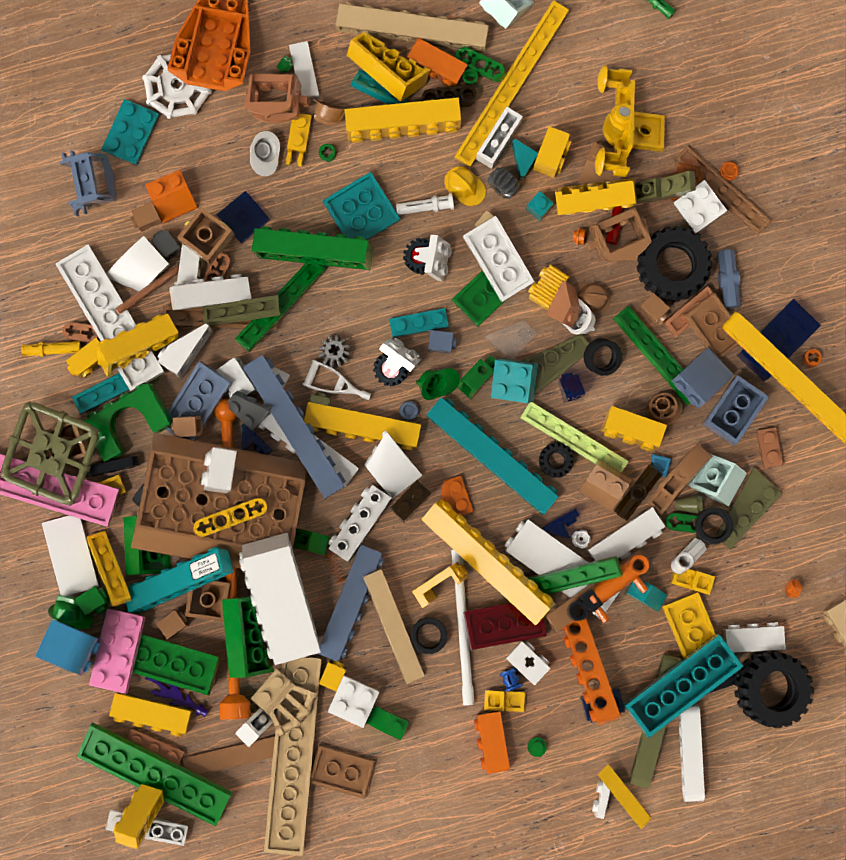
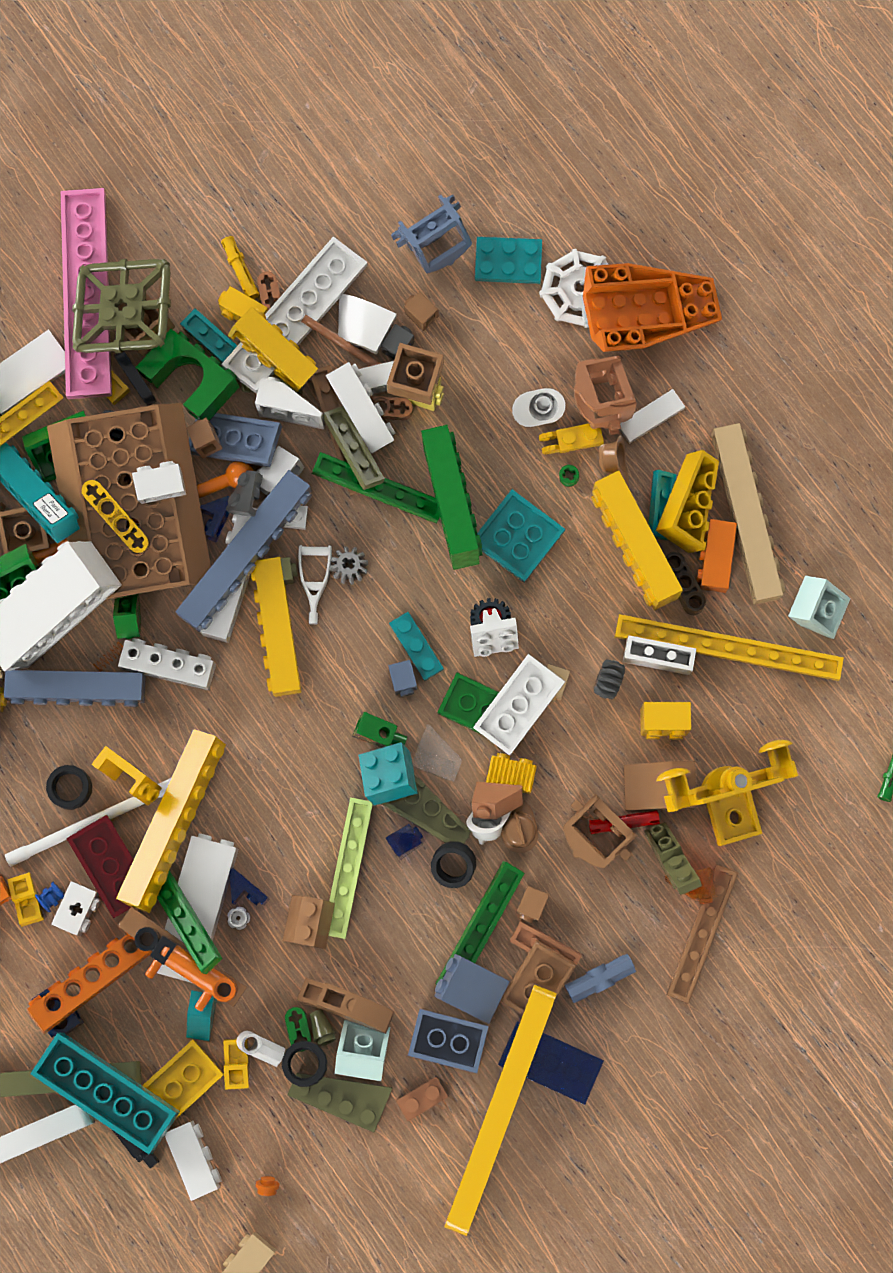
camera: 75 degrees right, 5 degrees down
(171, 196) = (454, 328): orange slope -> none
(243, 217) = (462, 413): clear blue plate -> none
(284, 64) = (649, 392): green plate -> none
(391, 466) = (241, 675): white slope -> none
(393, 626) = (64, 743): tan tile -> none
(395, 362) = (361, 635): white plate -> none
(408, 411) = (313, 672): sand blue tile -> none
(410, 501) = (208, 709): dark brown brick -> none
(434, 204) = (556, 612): white pin -> none
(438, 383) = (354, 691): green piece -> none
(456, 495) = (236, 759): orange wing -> none
(465, 186) = (591, 640): yellow piece -> none
(470, 73) = (721, 596): green hinge -> none
(485, 71) = (729, 612): green beam -> none
(492, 456) = (295, 782): teal brick -> none
(524, 158) = (647, 691): teal slope -> none
(539, 206) = (599, 730): teal brick -> none
(556, 448) = (317, 842): black tyre -> none
(580, 236) = (583, 789): orange plate -> none
(596, 196) = (633, 786): yellow wedge -> none
(629, 536) = (257, 970): white brick -> none
(630, 502) = (298, 957): dark brown piece -> none
(633, 429) = (382, 929): yellow brick -> none
(661, 464) = (356, 978): dark azure tile -> none
(664, 408) = (421, 958): medium nougat piece -> none
(692, 247) = (591, 939): black tyre -> none
(700, 207) = (669, 913): white brick -> none
(729, 171) = (728, 933): orange plate -> none
(797, 692) = (118, 1225): black tyre -> none
(811, 352) = (552, 1107): orange bush -> none

